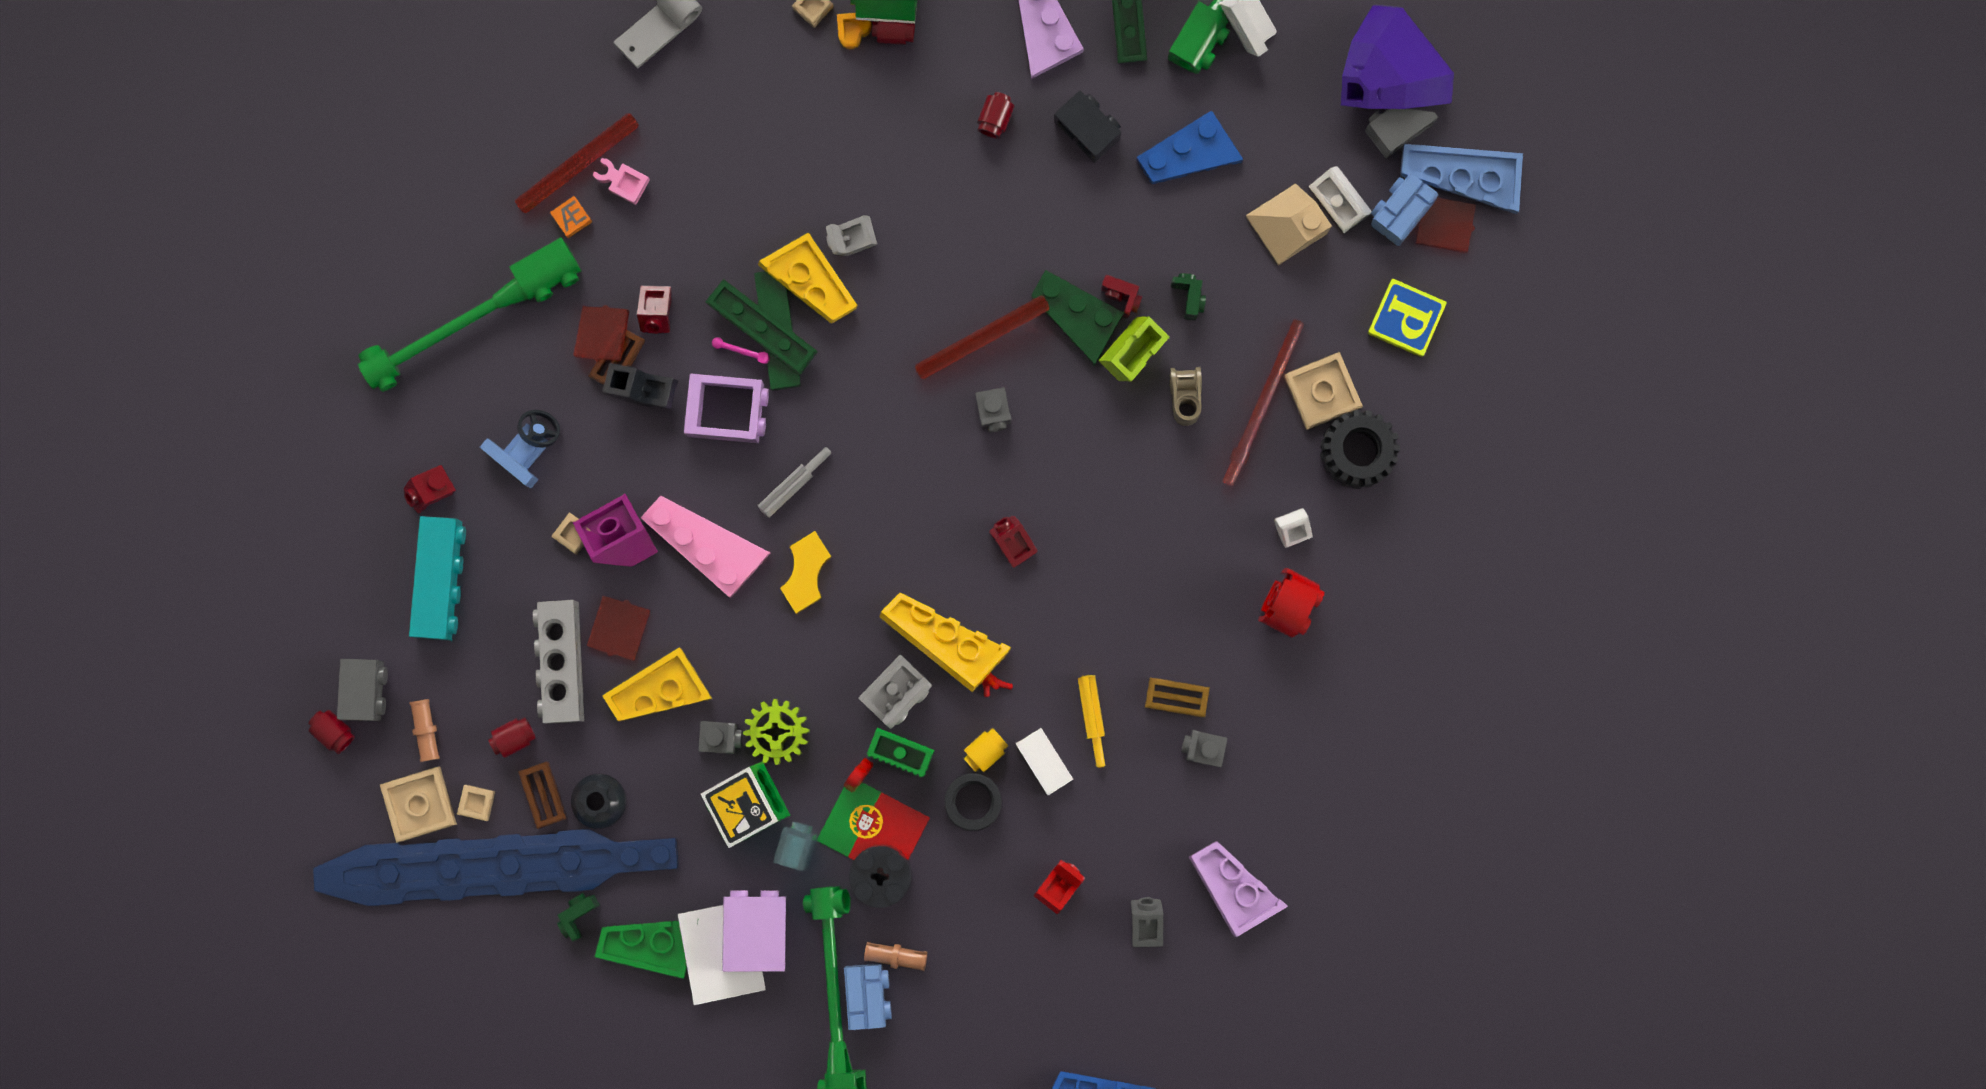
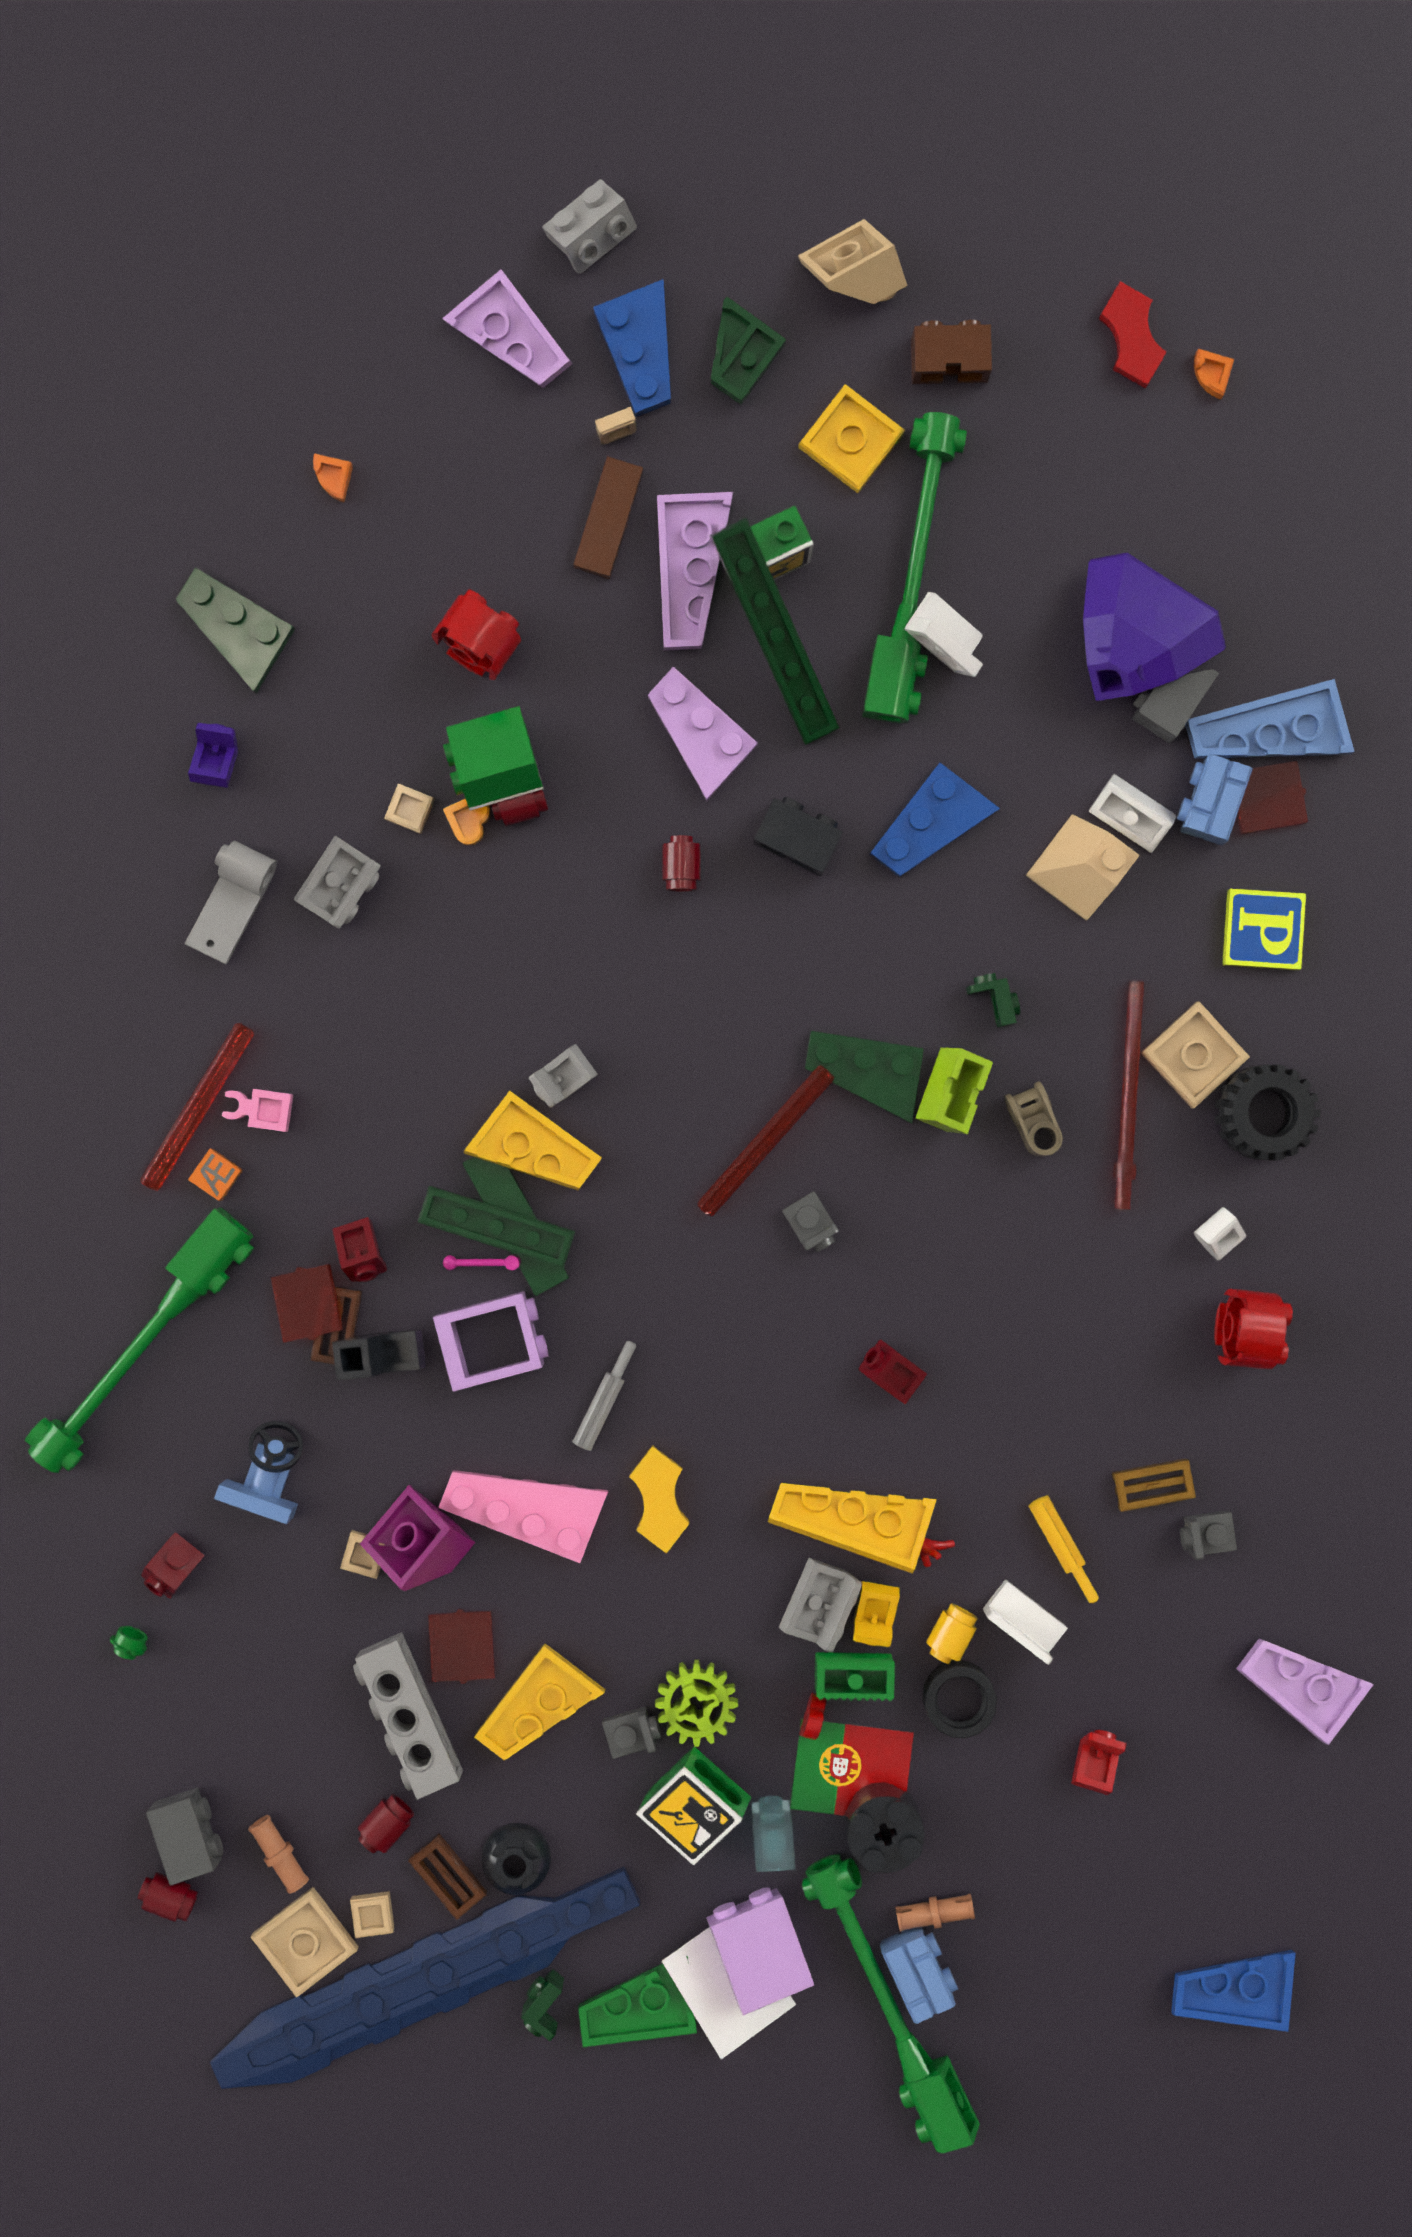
camera: 25 degrees left, 5 degrees up
(375, 533) = (129, 1642): none -> green plate
(436, 578) = (223, 1671): teal brick -> none
(740, 39) = (338, 883): none -> light grey bracket
(934, 714) = (875, 1614): none -> yellow bracket
(1118, 289) = (907, 1024): dark red bracket -> none
(1147, 922) = (1215, 1763): dark grey bracket -> none

